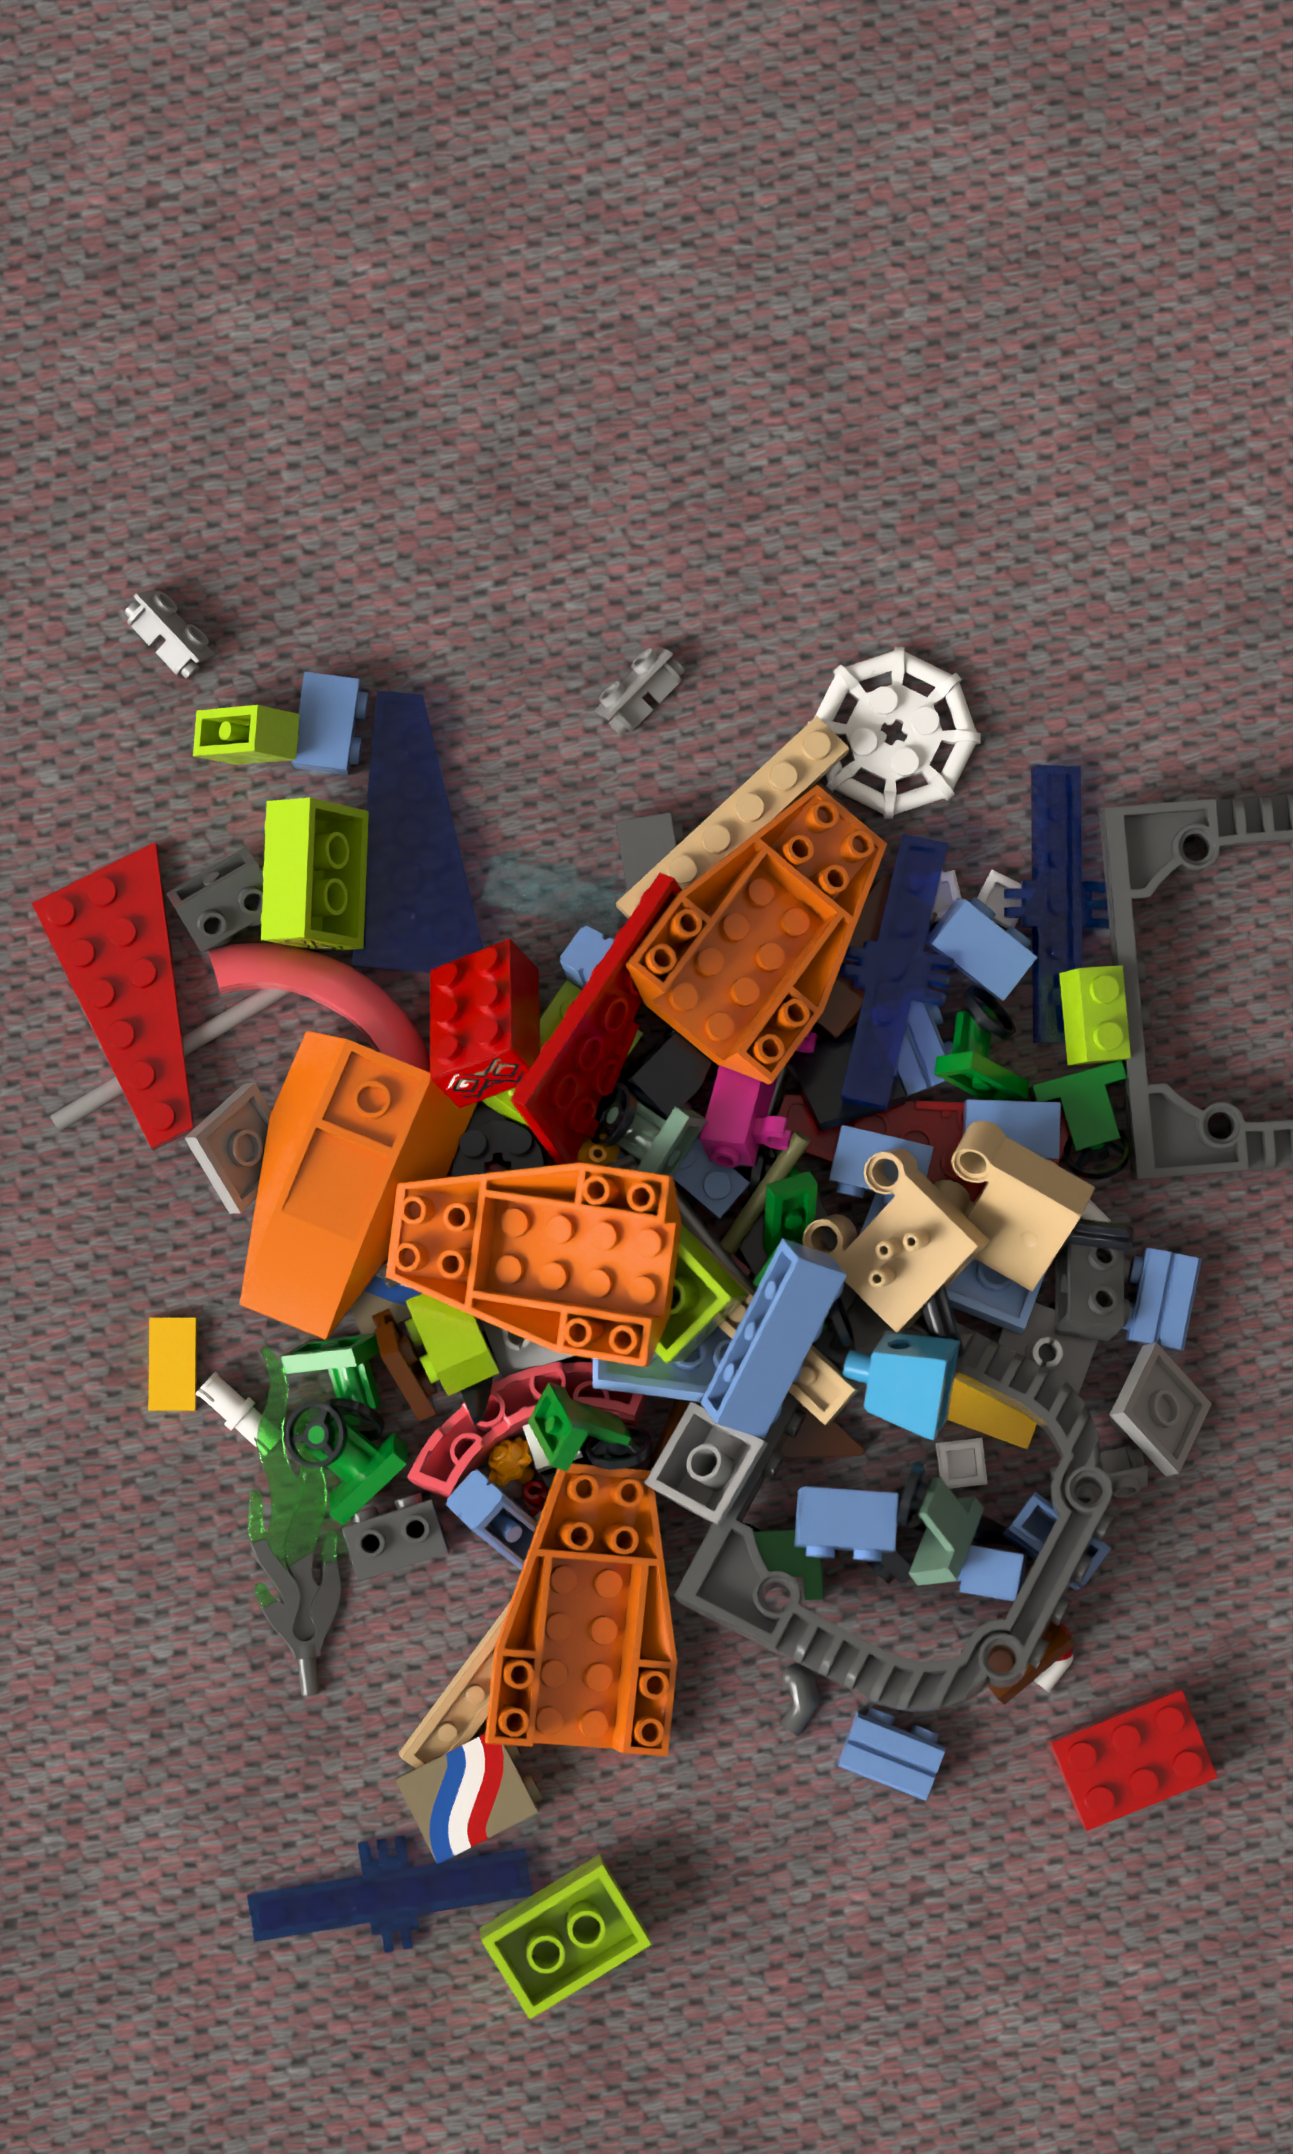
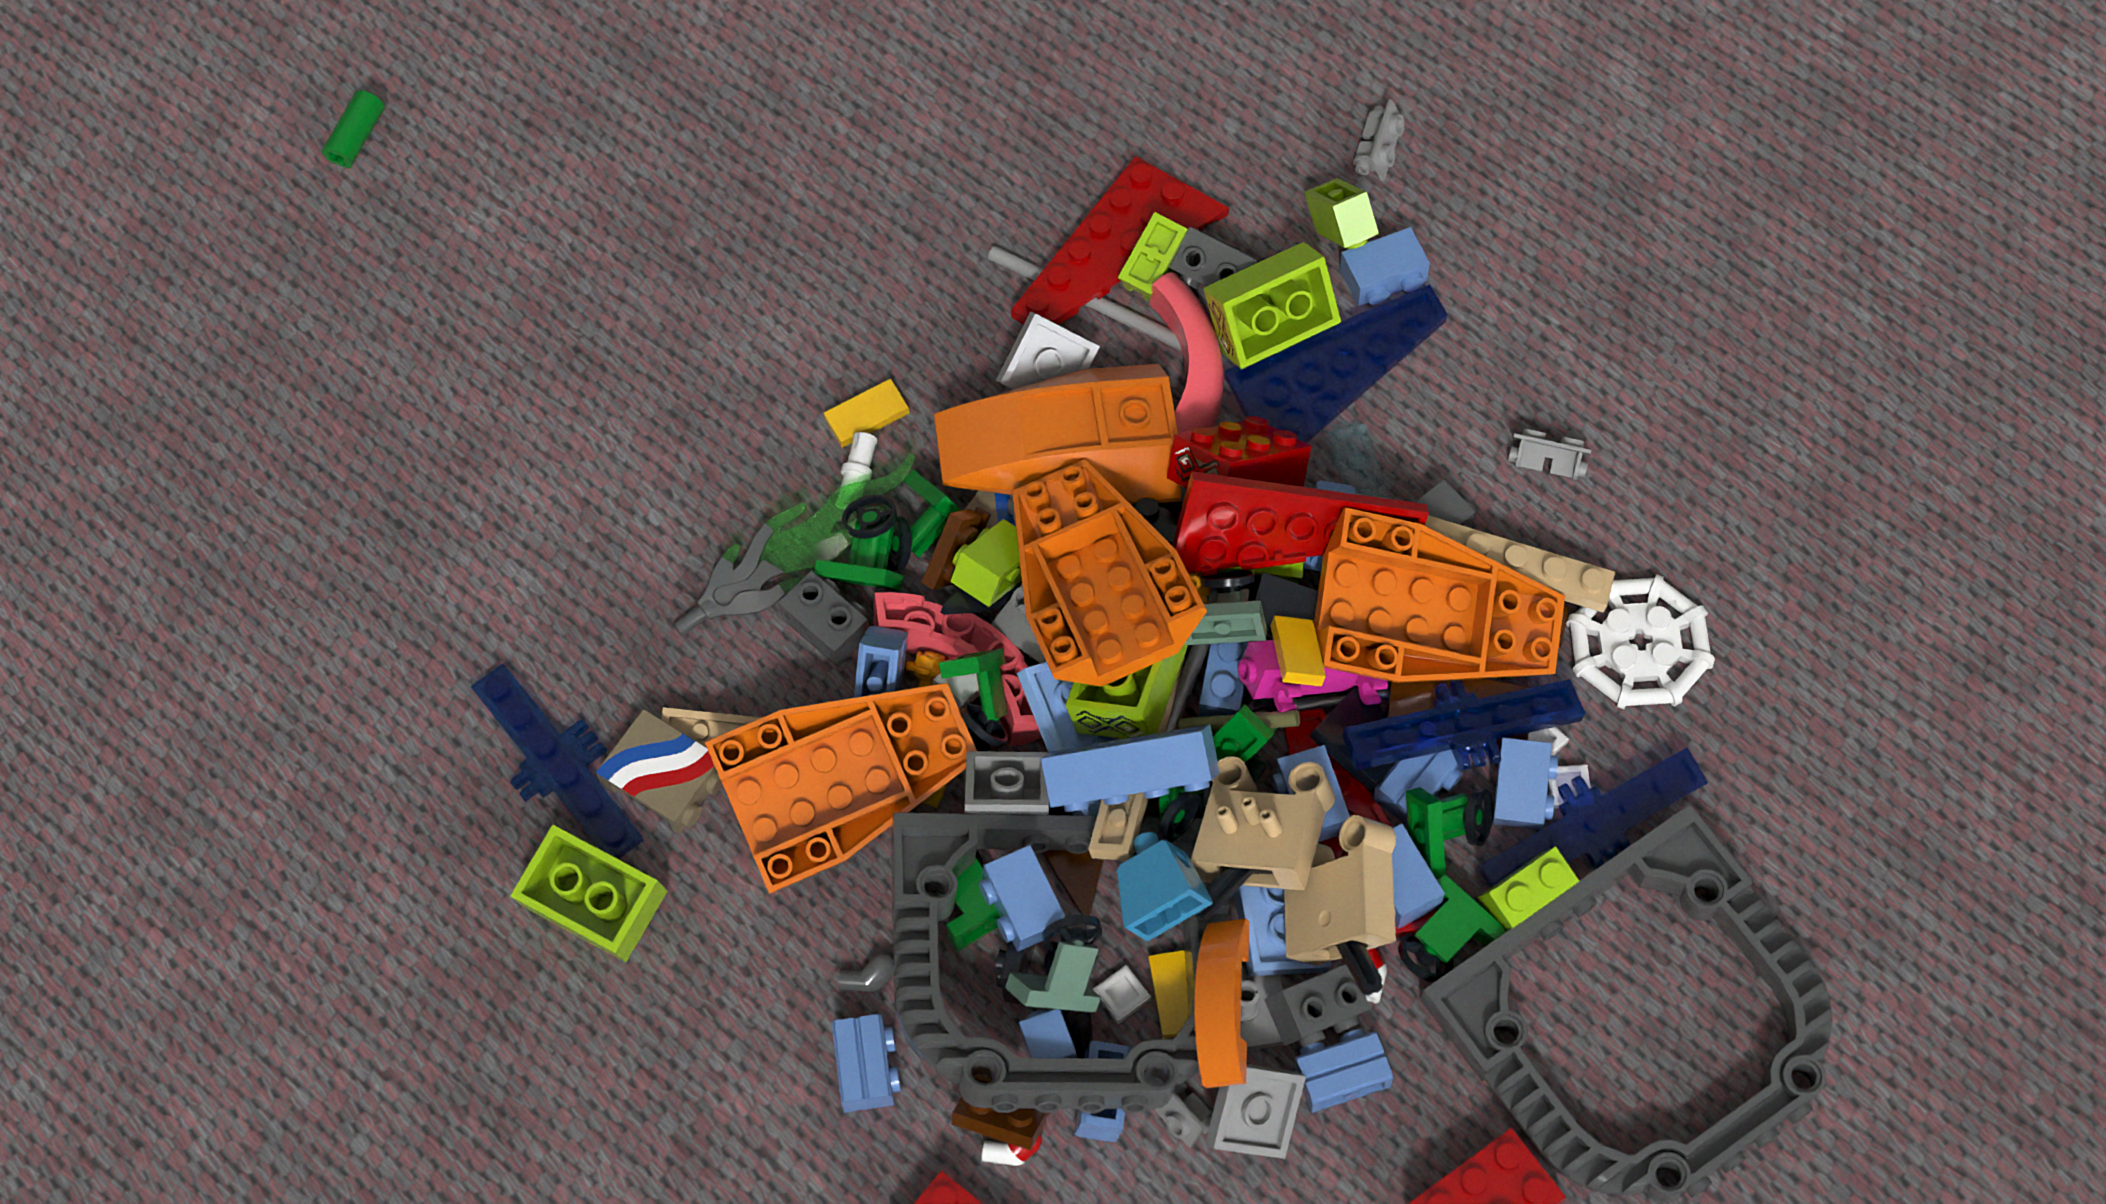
camera: 60 degrees right, 20 degrees down
(179, 962) = (1152, 255): none -> lime hinge
(738, 1096) = (1297, 651): none -> yellow tile
(1052, 1388) = (1218, 1003): none -> orange slope

